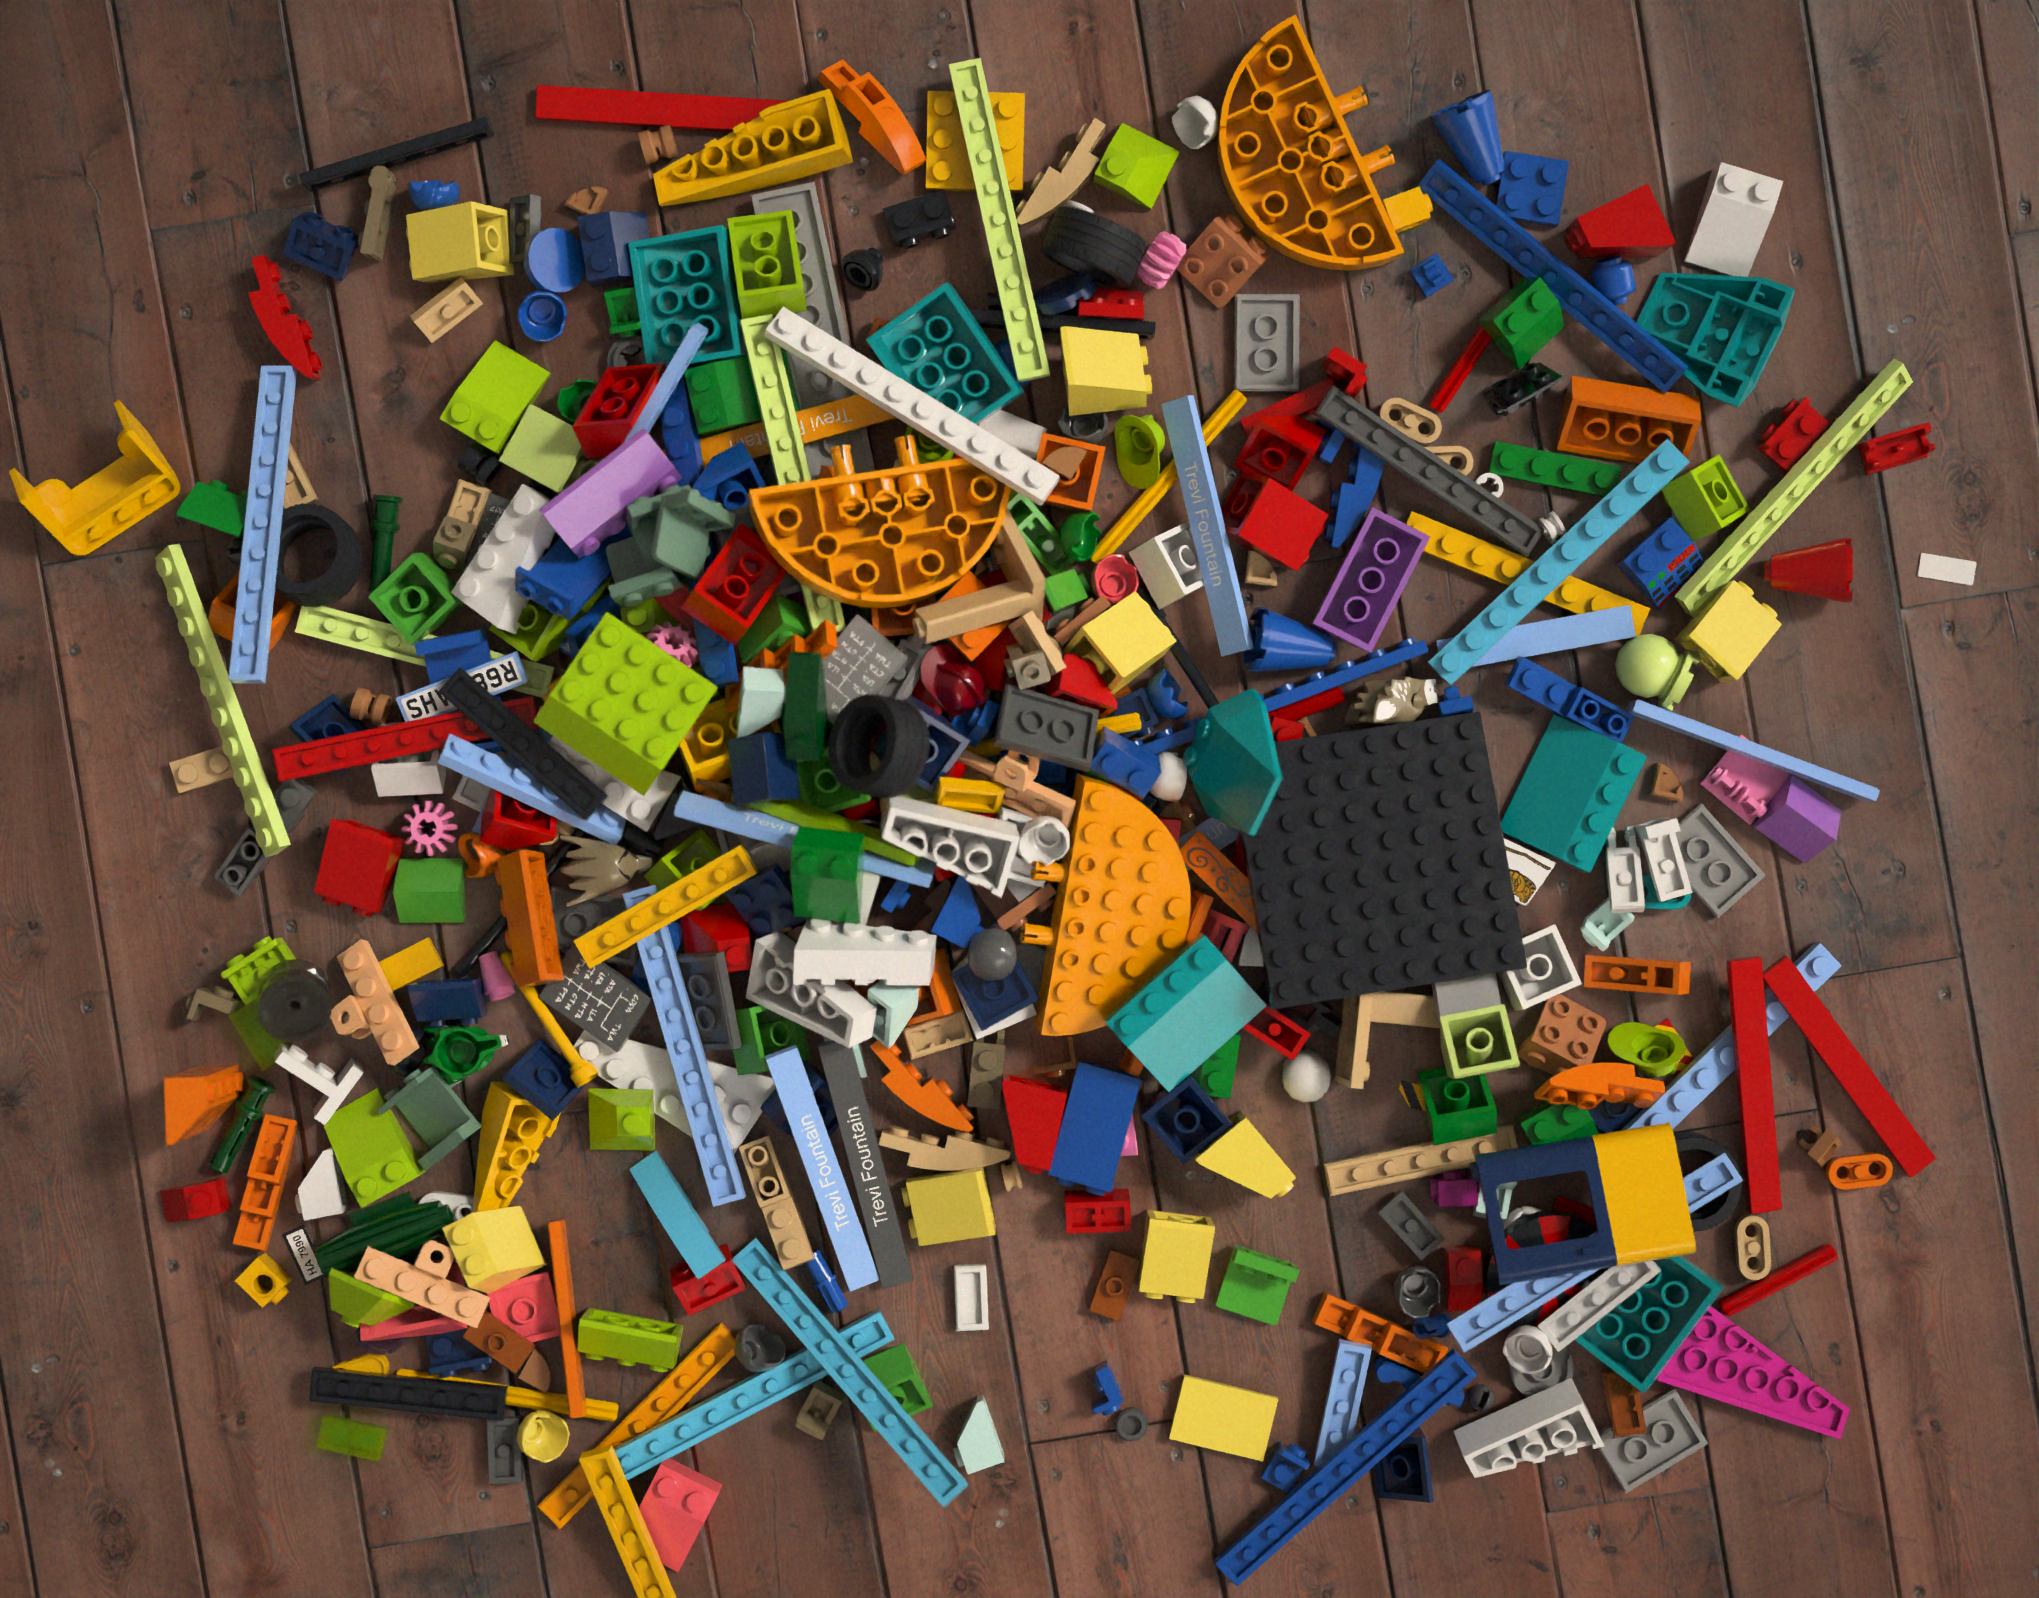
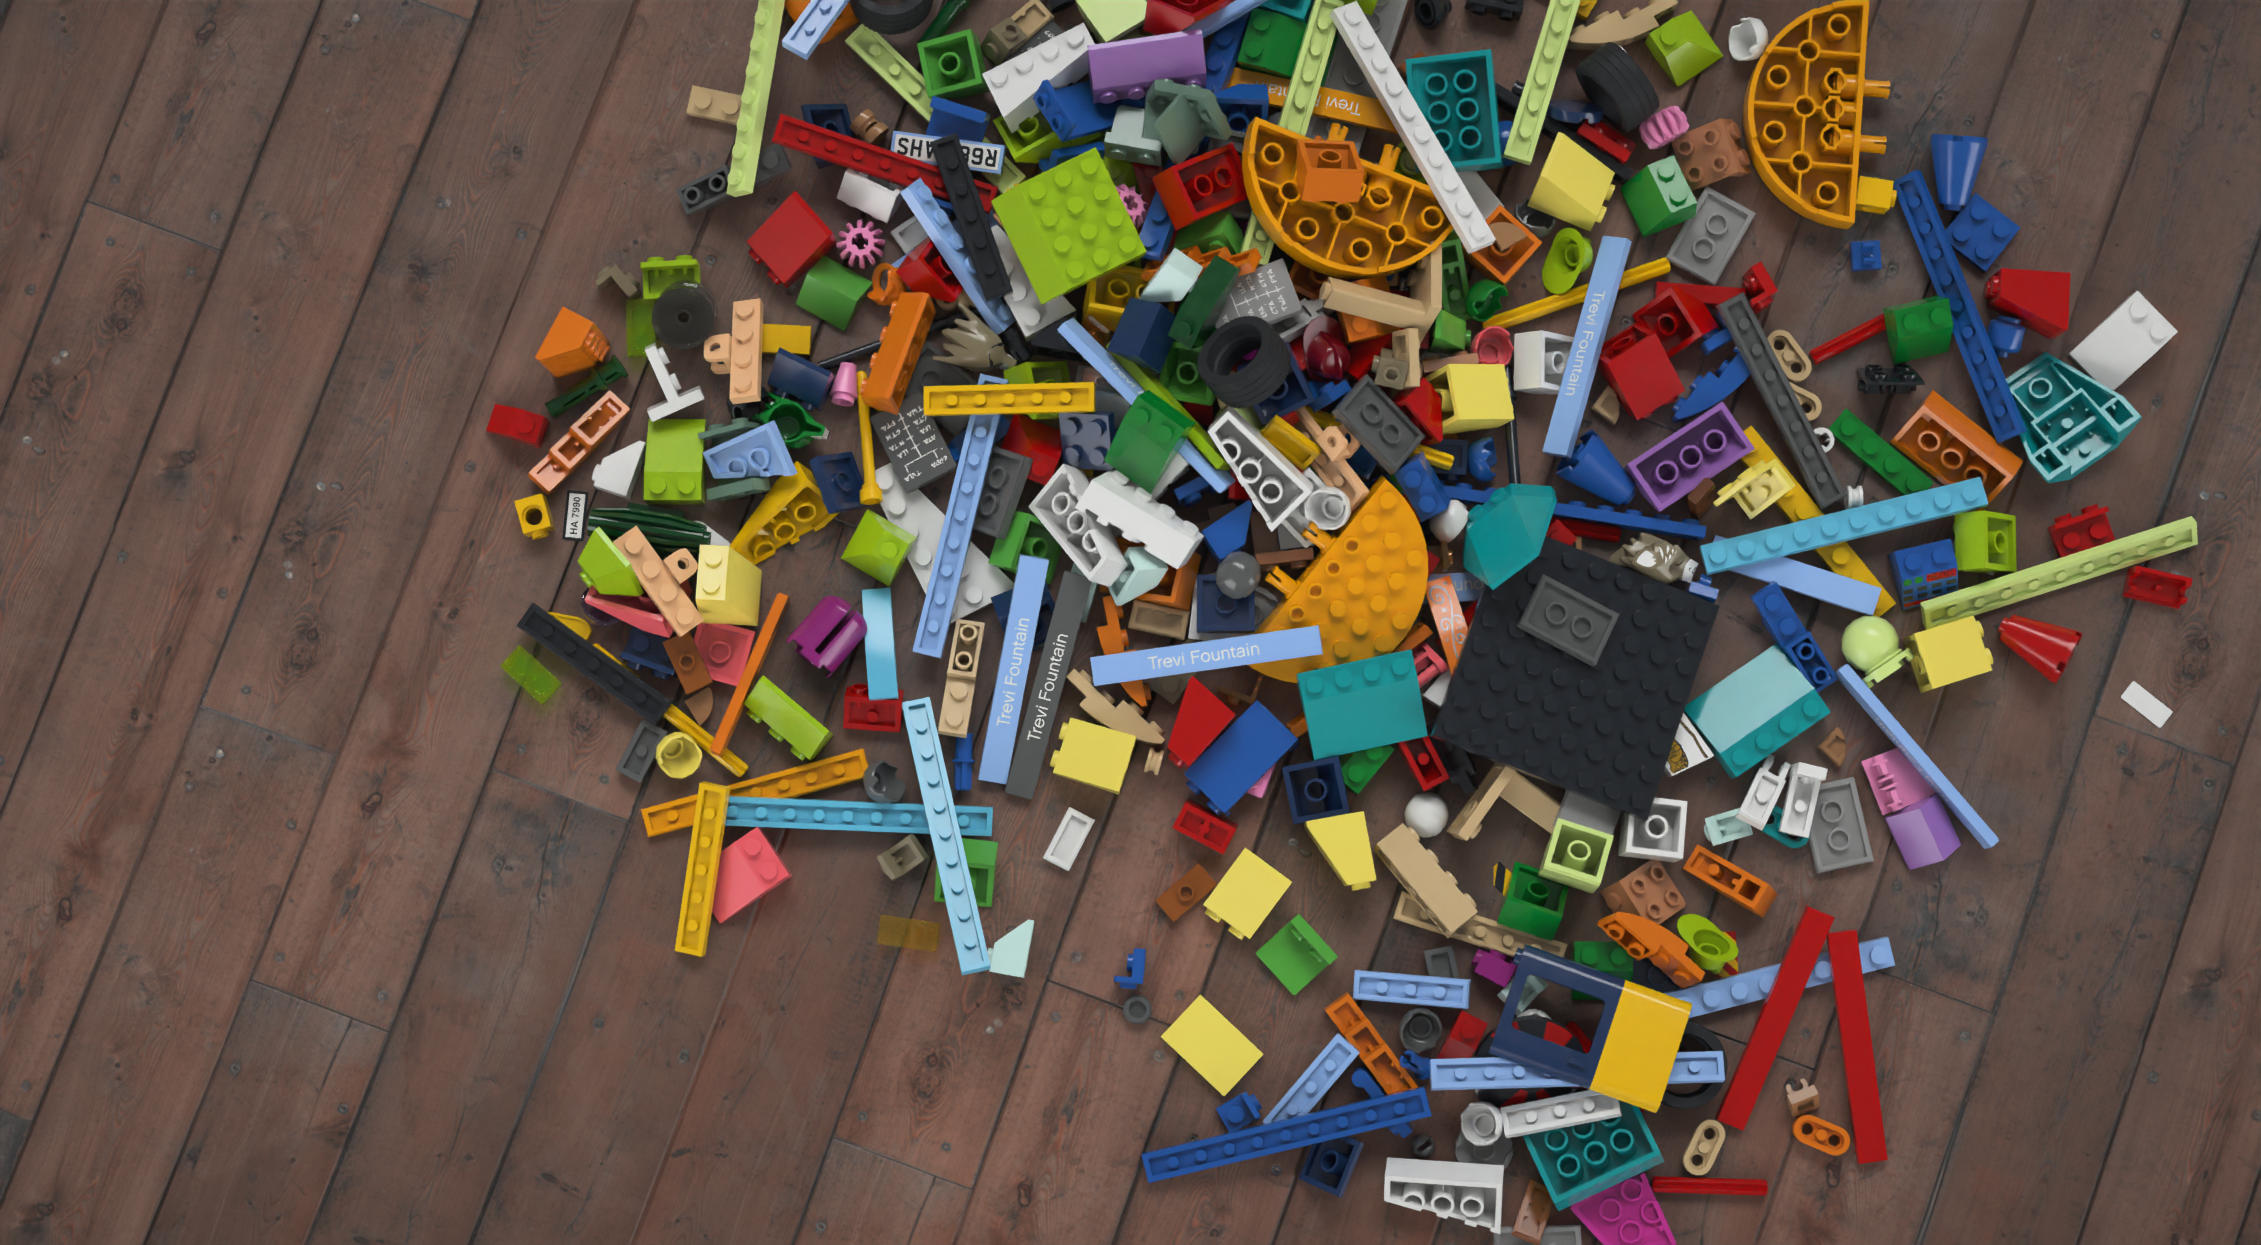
camera: 30 degrees right, 5 degrees down
(442, 1103) = (751, 454): none -> light blue wing
(621, 1235) = (819, 625): none -> magenta cylinder
(854, 504) = (1328, 171): none -> orange slope
(867, 1477) = (908, 933): none -> clear yellow slope
(1006, 1050) = (1206, 655): none -> light blue tile
(1195, 333) = (1659, 197): none -> green slope
(1341, 1143) = (1425, 880): none -> tan brick
(1342, 816) = (1568, 620): none -> dark grey tile
(1387, 1256) = (1411, 989): none -> light blue tile
(1404, 614) = (1702, 498): none -> reddish brown tile
(1454, 572) = (1757, 487): none -> light yellow bracket

